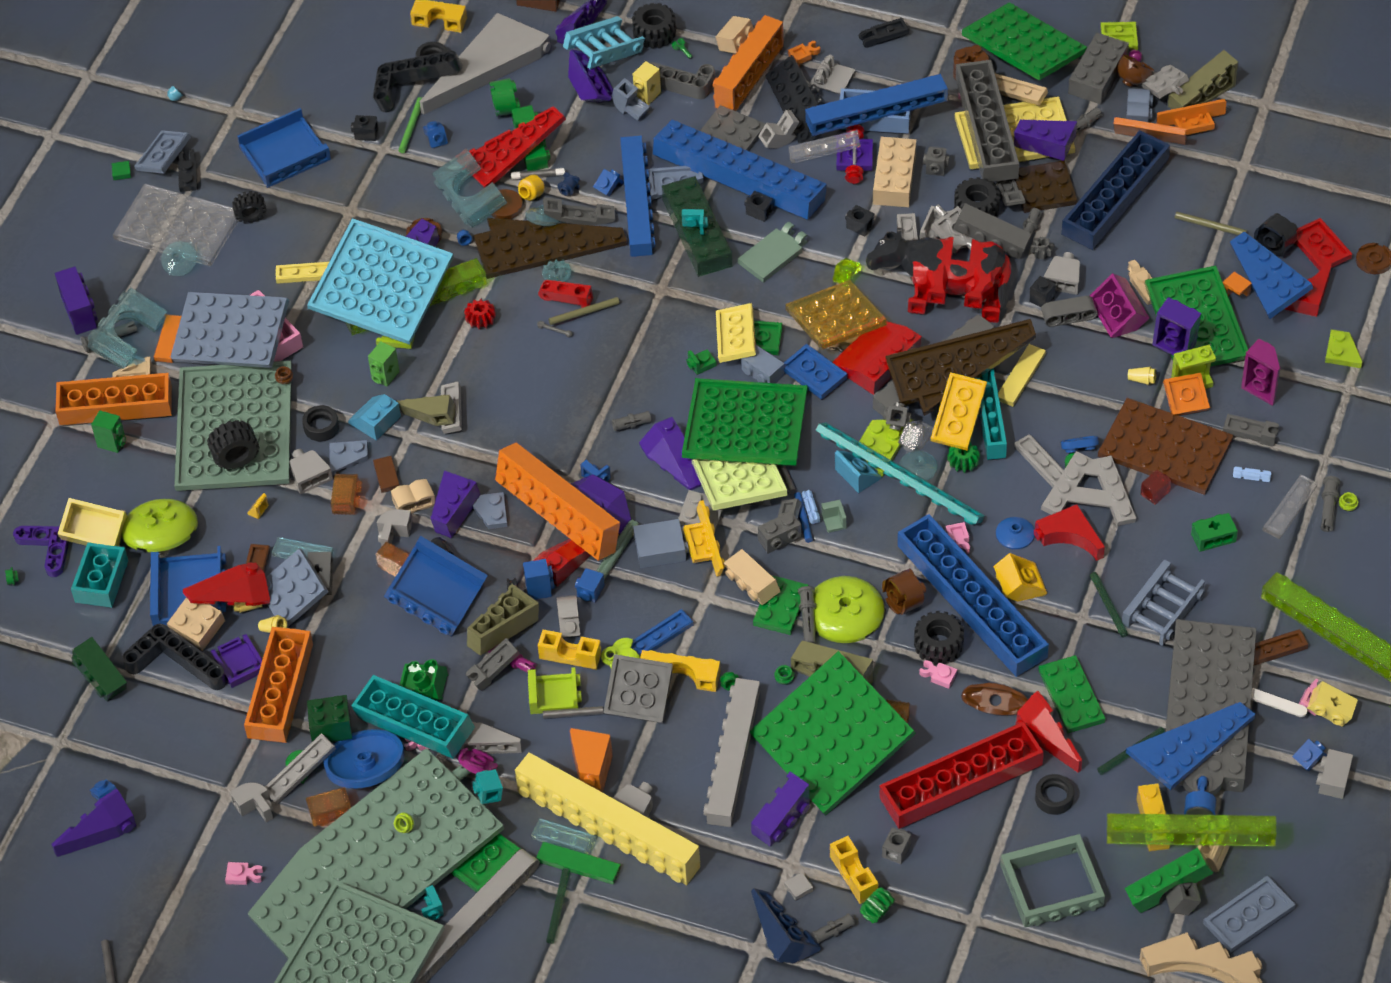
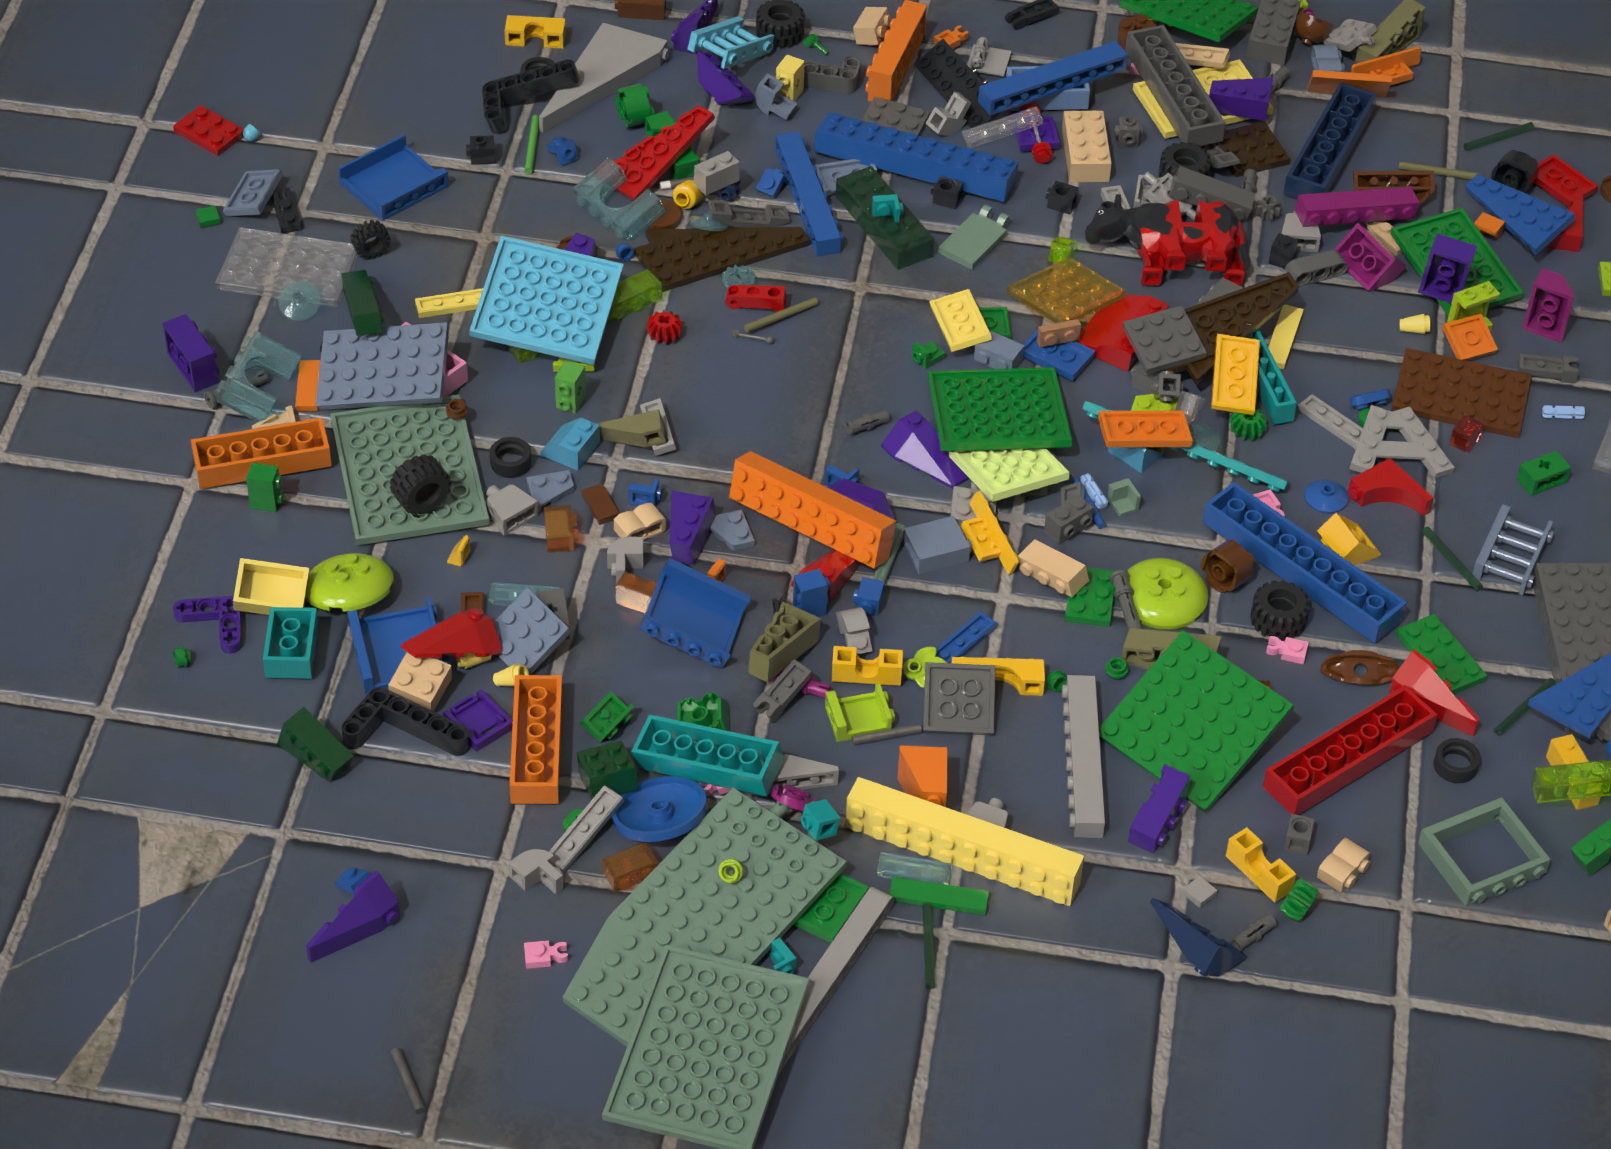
camera: 15 degrees left, 5 degrees down
(140, 87) = (209, 130): none -> red plate
(225, 268) = (362, 302): none -> dark green brick
(342, 670) = (606, 716): none -> green bracket
(422, 470) = (642, 494): none -> blue bracket
(466, 550) = (718, 570): none -> orange tile
(556, 172) = (716, 173): none -> light grey brick
(817, 354) = (1058, 333): none -> medium nougat plate
(862, 456) = (1145, 429): none -> orange plate
(903, 372) = (1164, 339): none -> dark grey plate
(926, 878) = (1343, 865): none -> tan brick
(1118, 256) = (1356, 206): none -> magenta brick
(1159, 241) = (1420, 181): none -> reddish brown wedge
(1276, 194) = (1498, 136): none -> clear green bar

